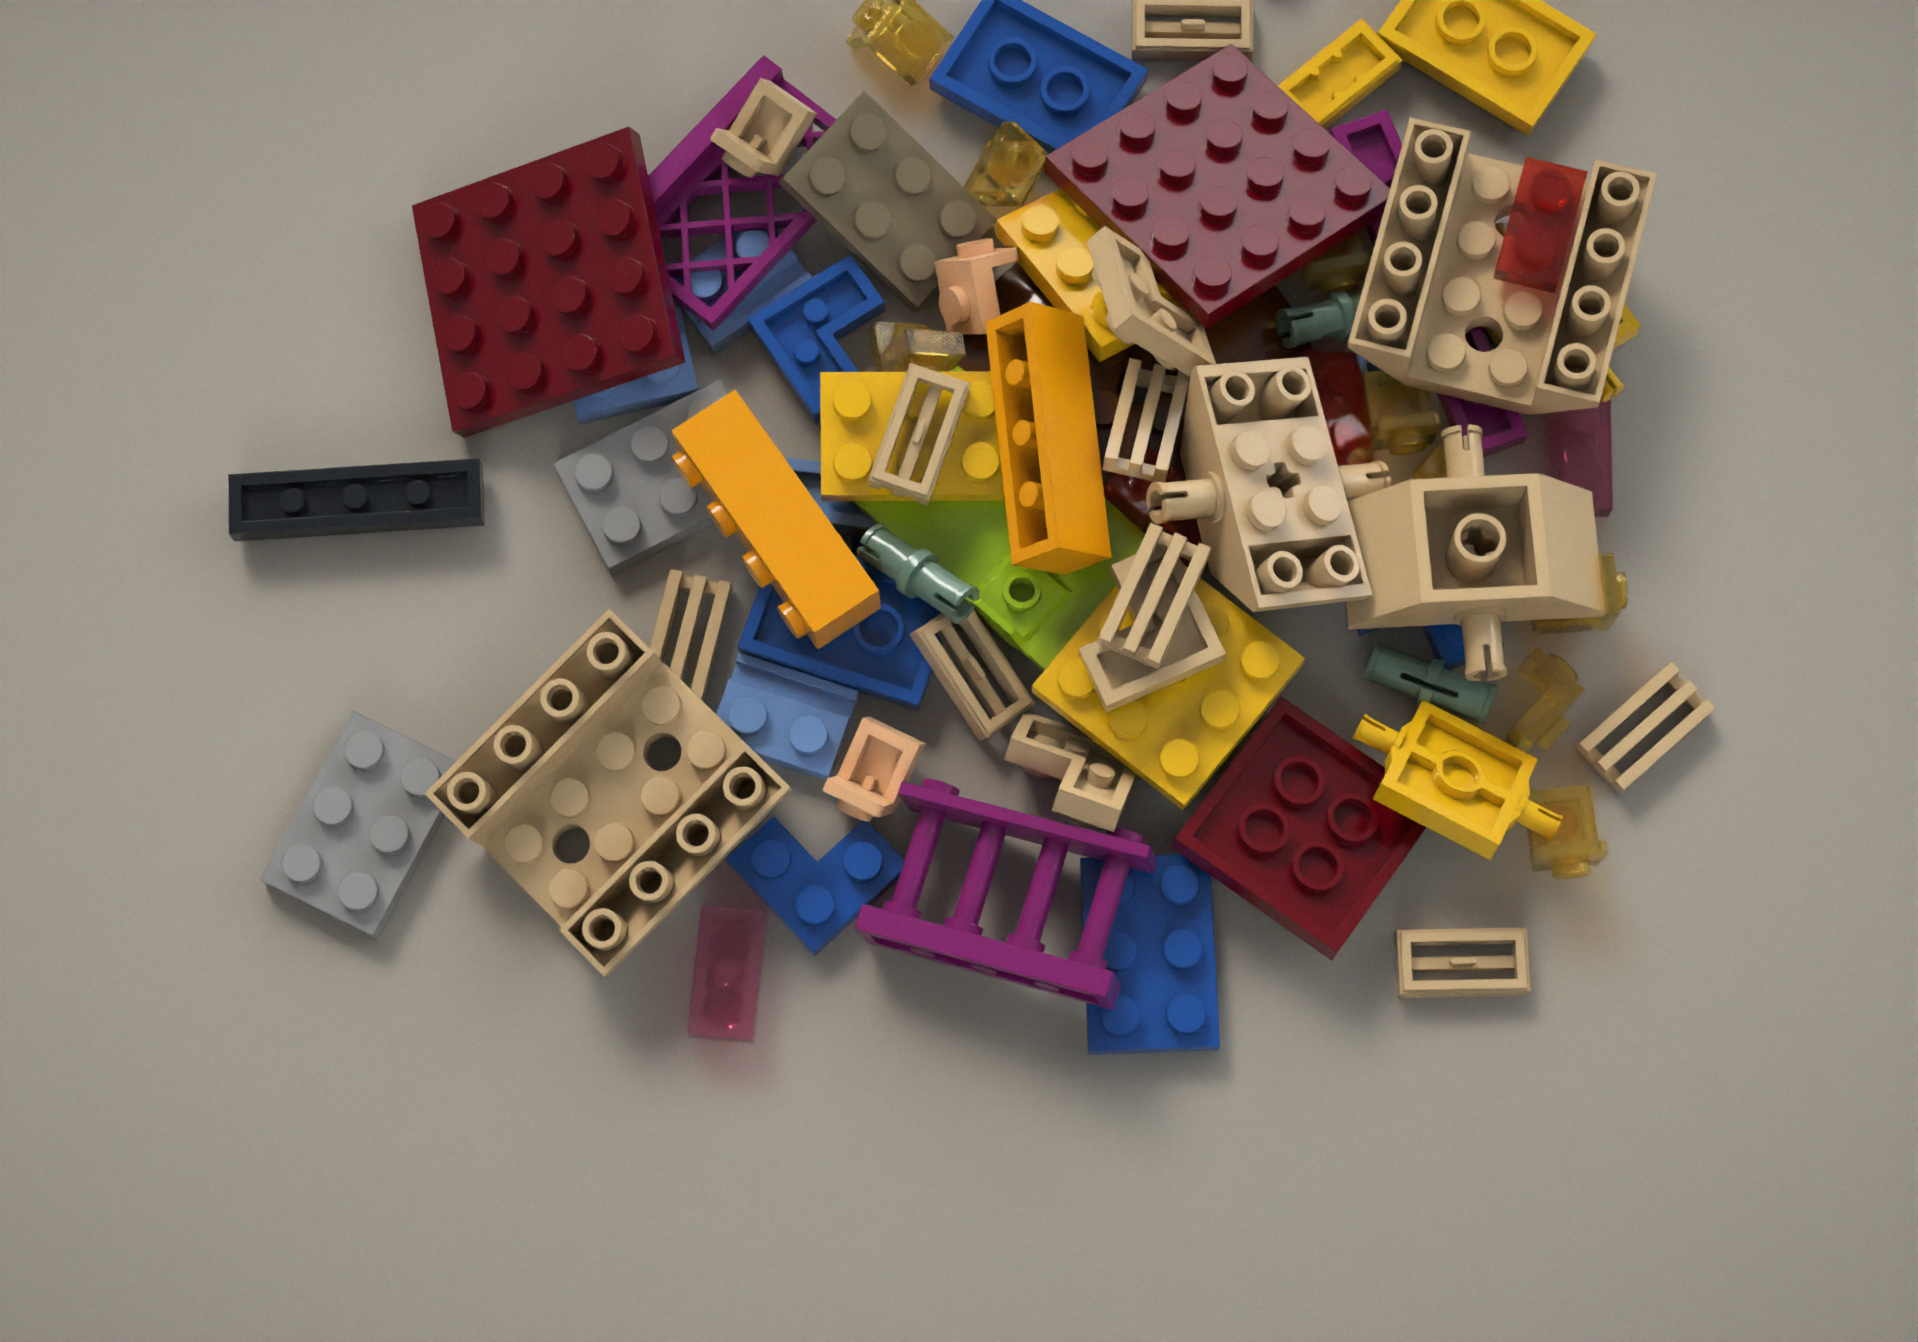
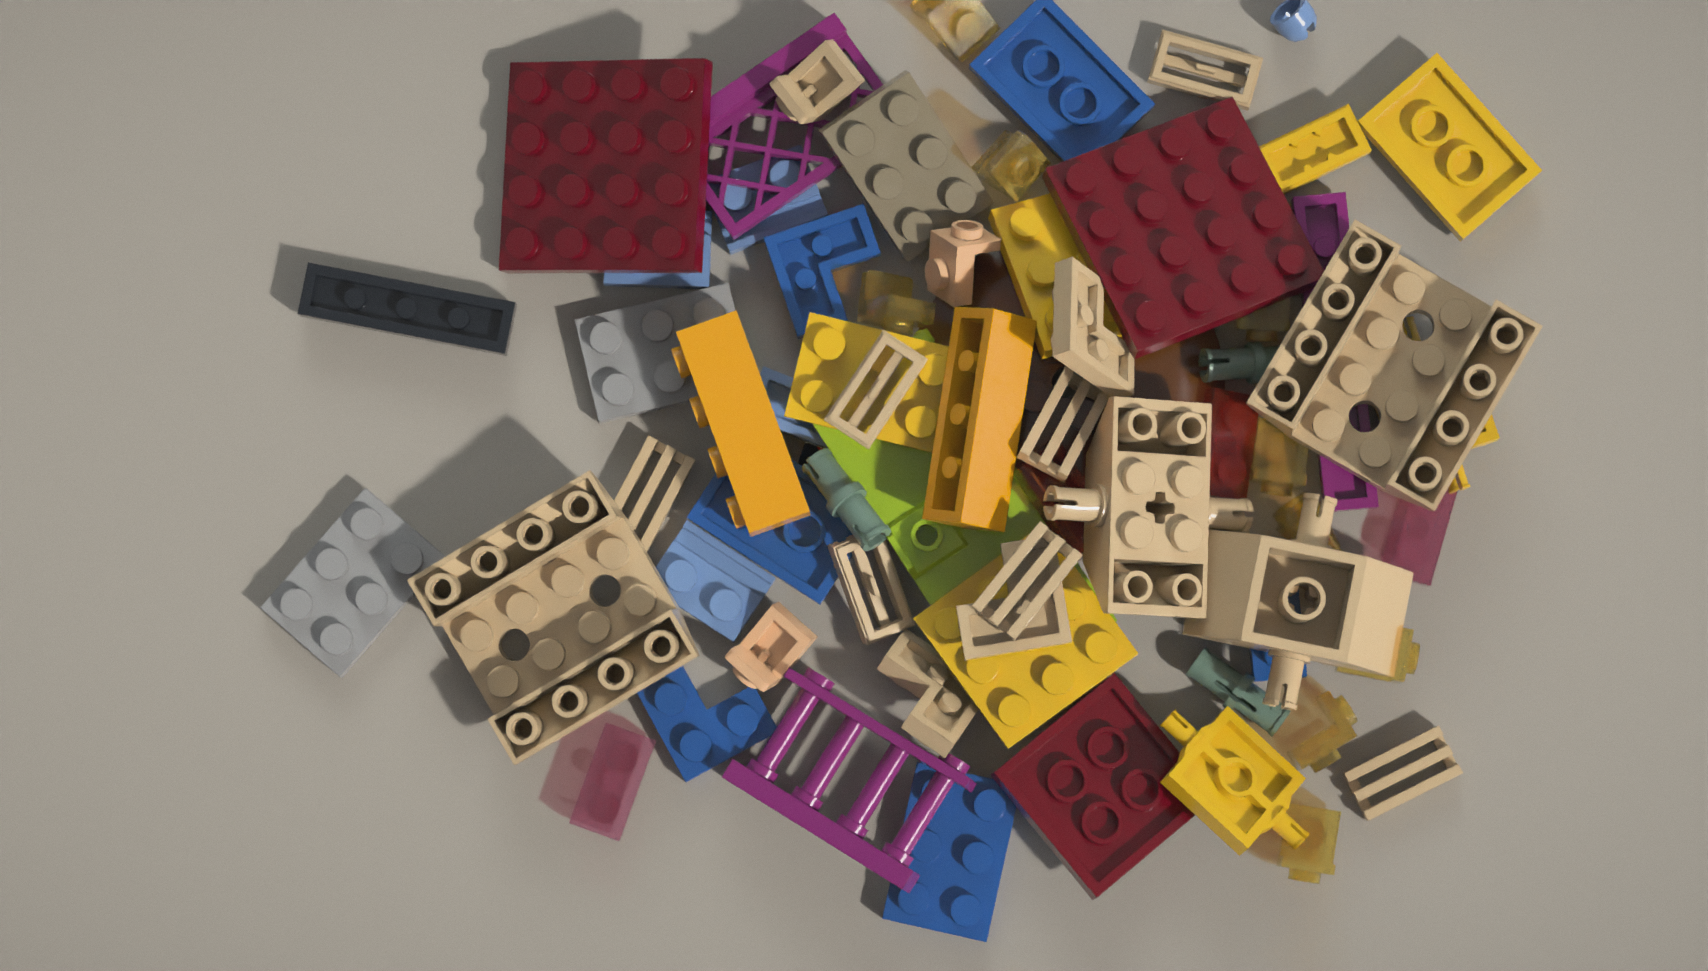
camera: 15 degrees right, 10 degrees up
(1407, 964) = (1154, 913): tan tile -> none
(1540, 225) = (1436, 339): clear red plate -> none

